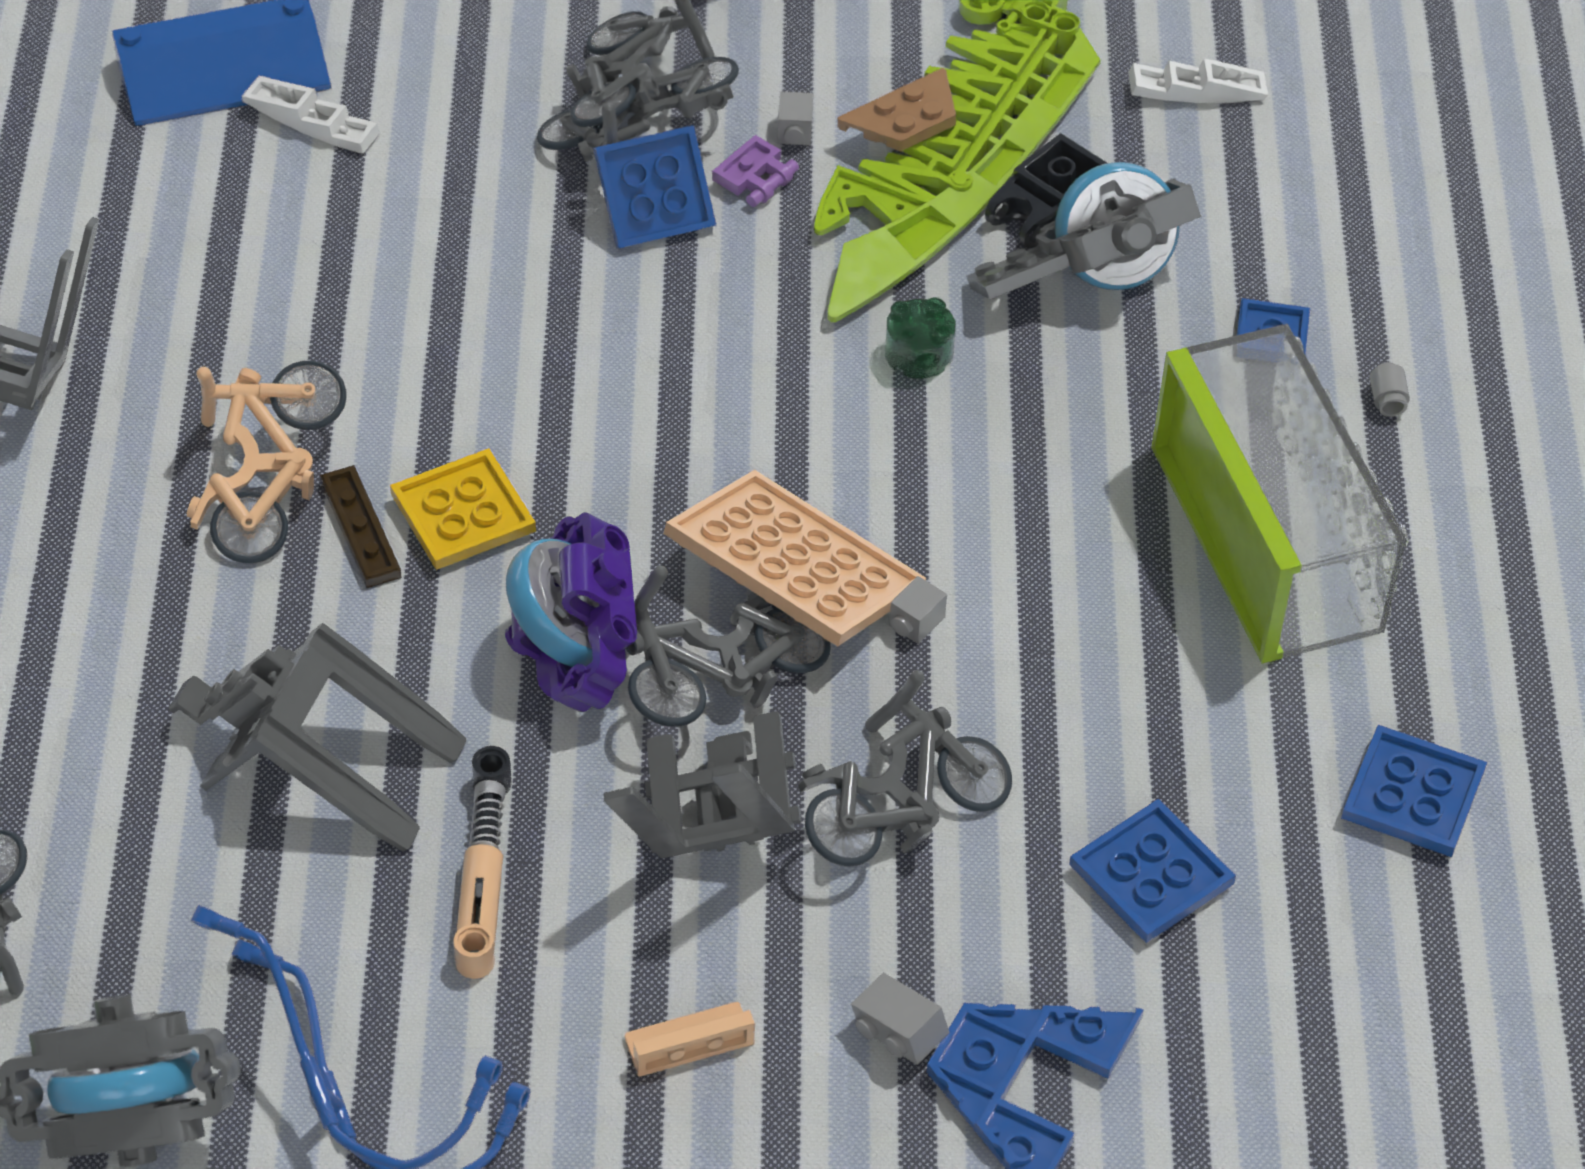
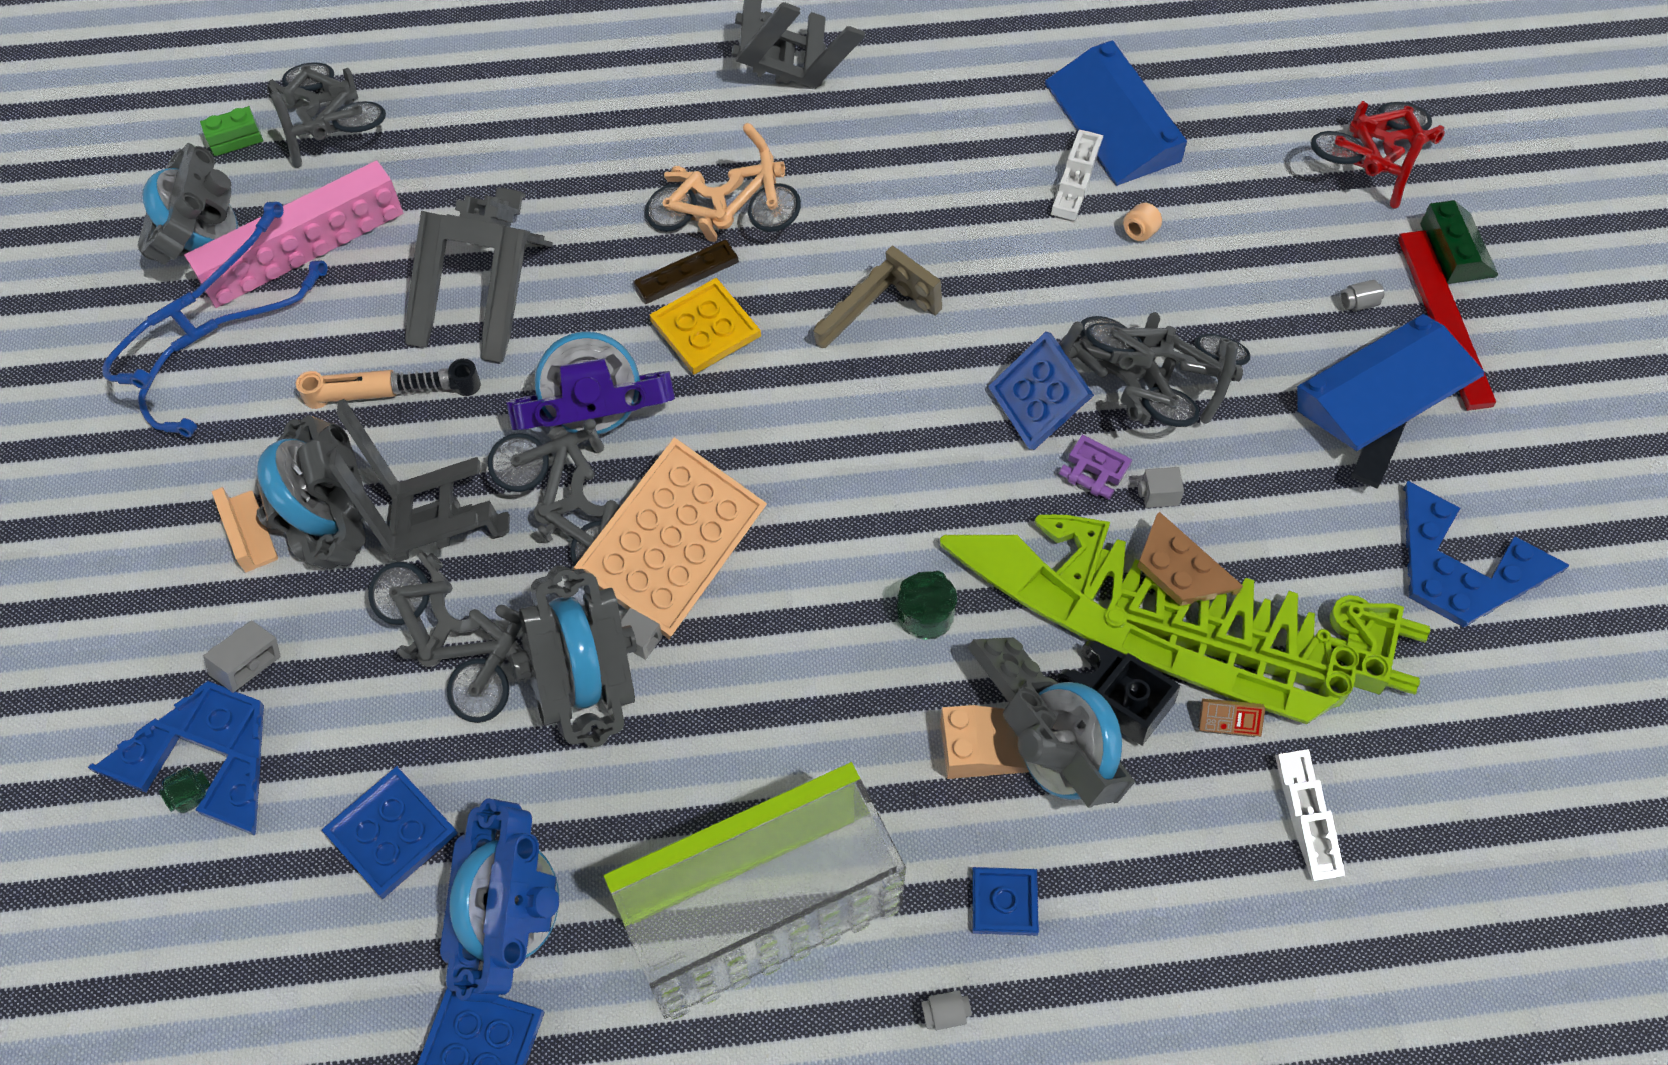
camera: 85 degrees right, 10 degrees up
(188, 953) = (303, 232): none -> bright pink brick
(408, 66) = (1142, 221): none -> light nougat head
(445, 291) = (898, 270): none -> dark tan bracket
(662, 882) = (305, 496): none -> dark grey piece
(975, 634) = (576, 655): none -> dark grey piece
(1081, 1084) = (184, 789): none -> clear green head
(1086, 117) = (1231, 717): none -> medium nougat tile
(1092, 322) = (979, 742): none -> light nougat slope
(1270, 727) = (497, 901): none -> blue piece

